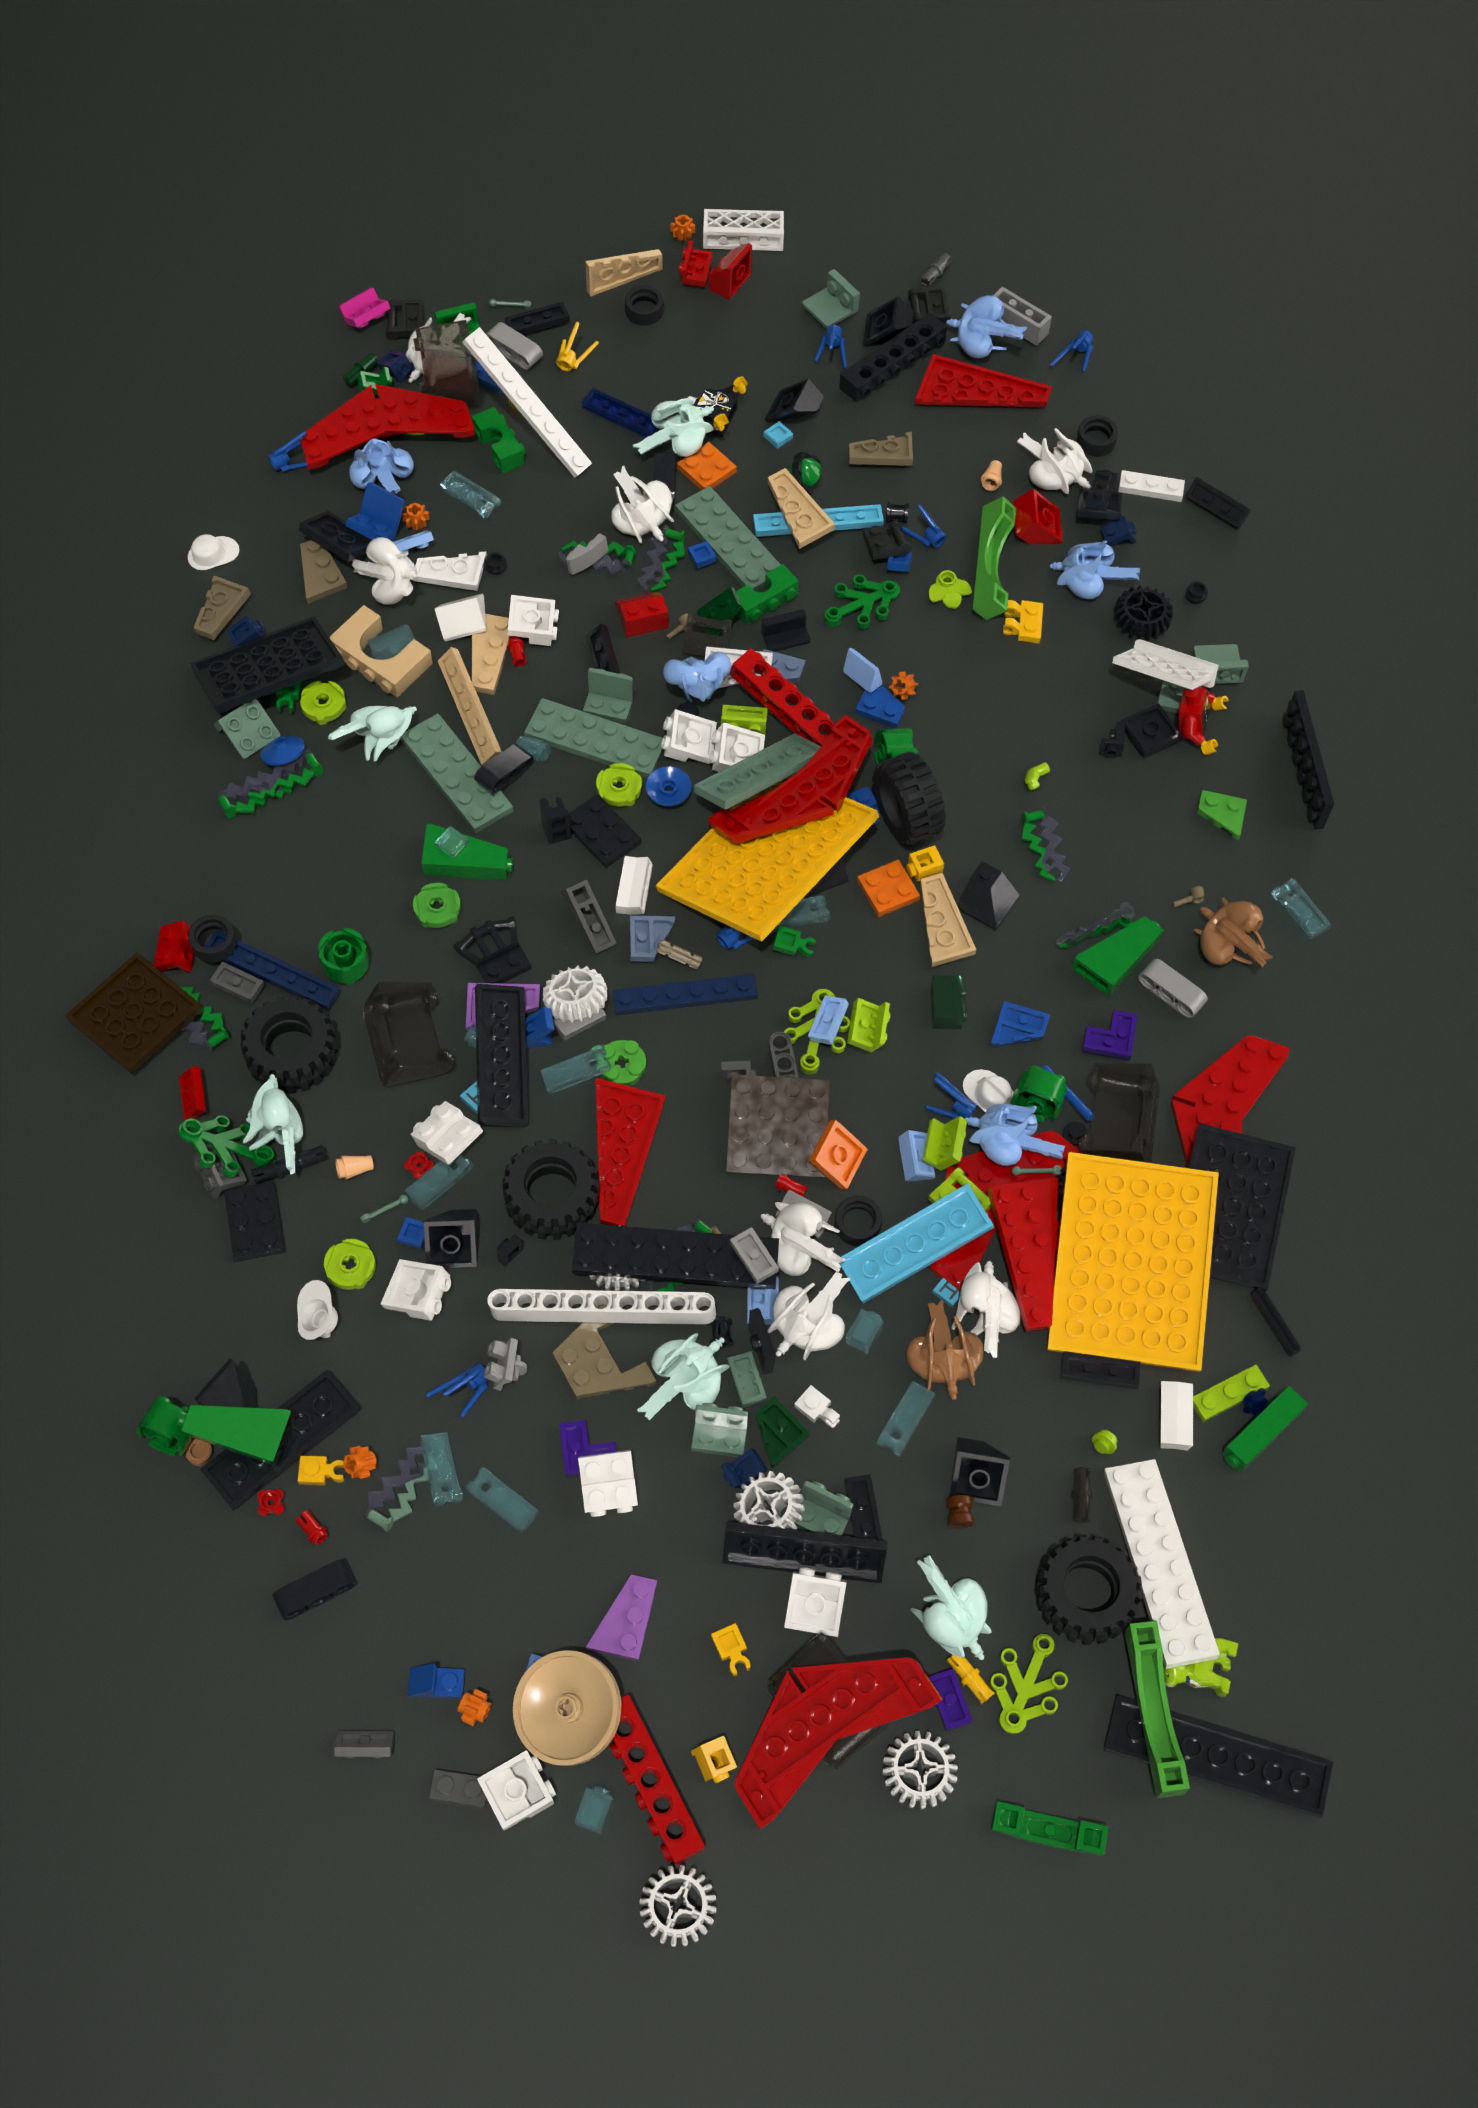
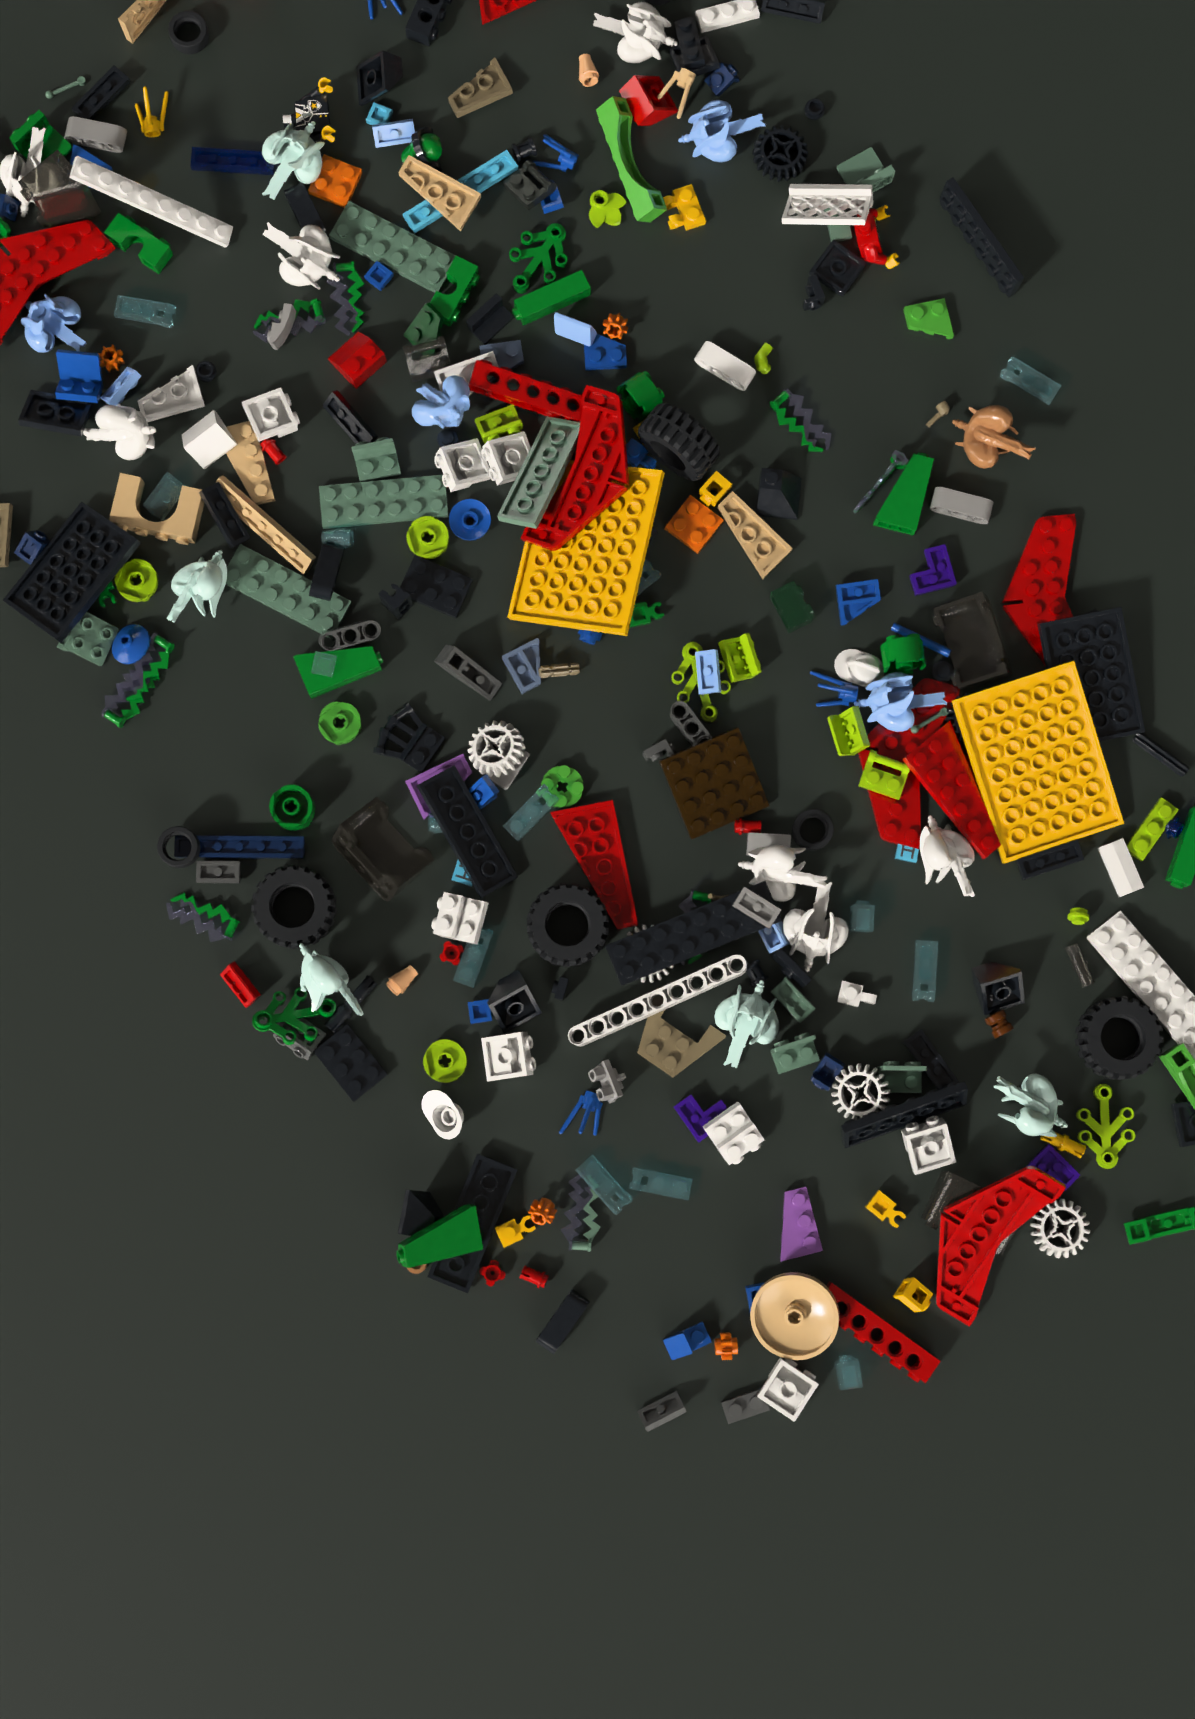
camera: 30 degrees left, 20 degrees up
(134, 1012) = (152, 940): dark brown plate -> none
(161, 1427) = (382, 1260): green brick -> none
(174, 948) = (149, 867): red bracket -> none
(320, 572) = (59, 453): dark tan wing -> none
(403, 1199) = (454, 986): sand green hinge -> none
(438, 681) = (224, 515): none -> black plate
(501, 839) = (339, 638): none -> dark grey beam
(634, 885) = (489, 625): white piece -> none
(665, 1900) = (941, 1419): white gear -> none
(682, 620) = (398, 350): dark tan hand -> none
(685, 994) = (580, 701): dark blue plate -> none
(779, 1431) = (837, 1028): dark green wing -> none
(780, 449) = (393, 133): none -> light blue plate
(838, 1154) = (772, 784): orange plate -> none
(862, 637) = (551, 298): none -> green brick
(912, 1149) = (826, 751): light blue slope -> none
(916, 1243) = (868, 830): medium azure plate -> none
(945, 1359) = (933, 910): medium nougat hair -> none
(994, 764) = (725, 365): none -> white beam
(1080, 515) = (685, 80): none -> tan plant

